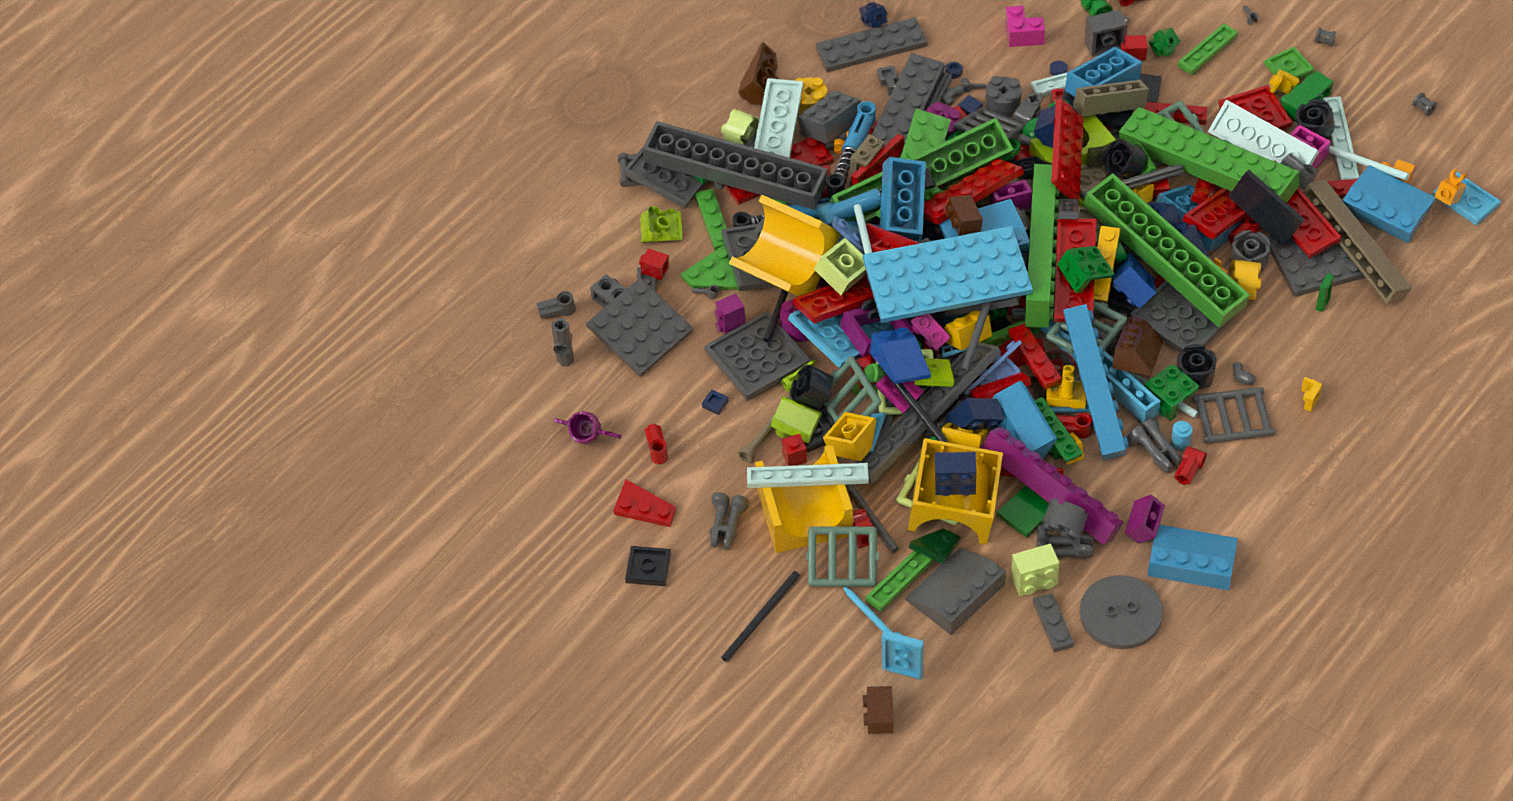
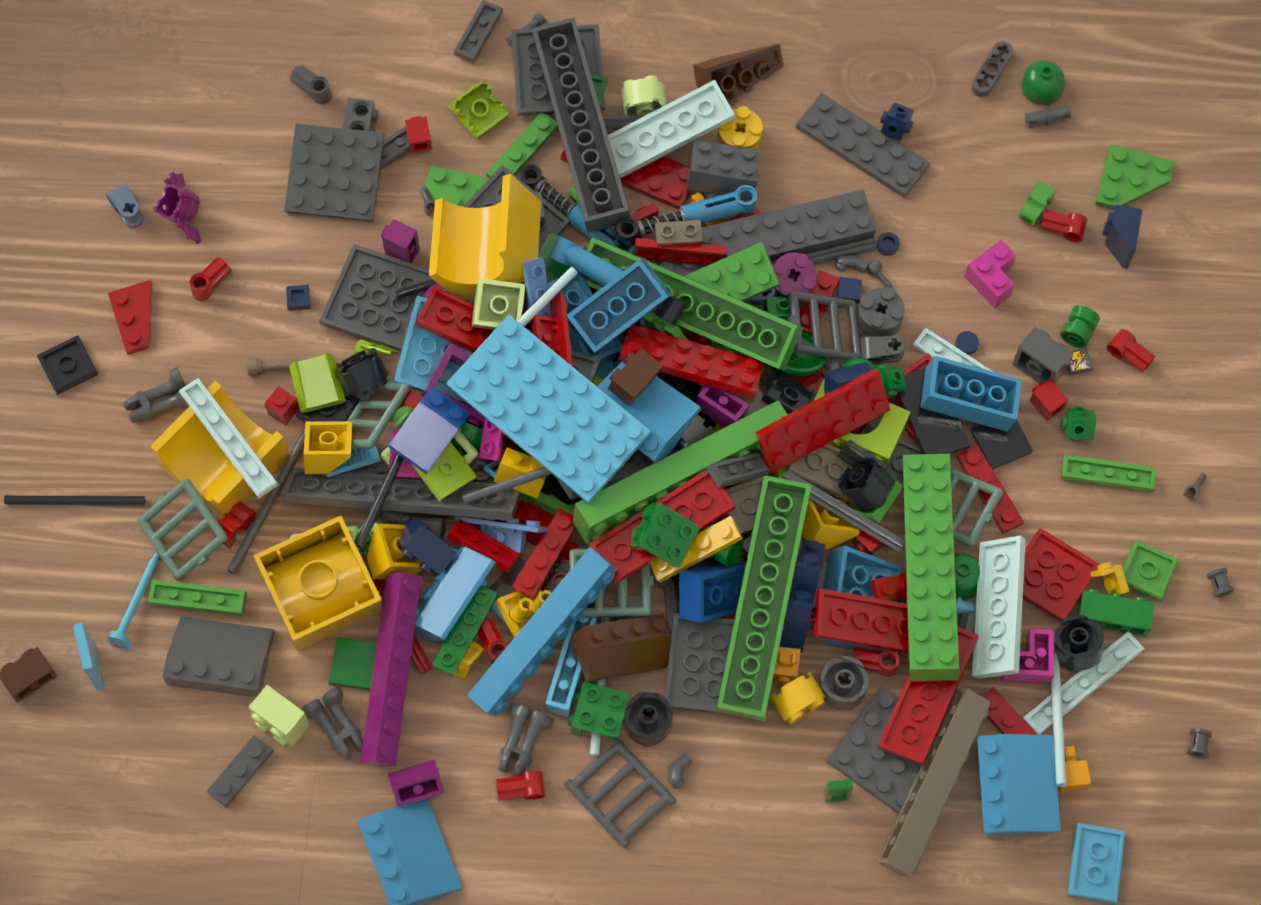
camera: 50 degrees right, 15 degrees up
(551, 462) = (125, 205): none -> sand blue piece
(562, 342) = (256, 118): dark grey piece -> none
(601, 194) = (478, 31): none -> dark grey plate
(888, 77) = (827, 187): dark grey plate -> none
(936, 545) = (254, 606): dark green wing -> none
(955, 473) = (304, 572): dark blue brick -> none
(1065, 518) = (347, 708): dark grey brick -> none
(1110, 97) = (936, 419): dark tan brick -> none
(1121, 612) = (295, 828): dark grey plate -> none
(1181, 435) = (550, 756): medium azure brick -> none
(1266, 207) = (897, 664): black tile -> none
(1306, 172) = (977, 666): dark grey piece -> none
(1312, 393) = (694, 857): yellow bracket -> none
(1451, 188) = (1079, 841): light orange brick -> none

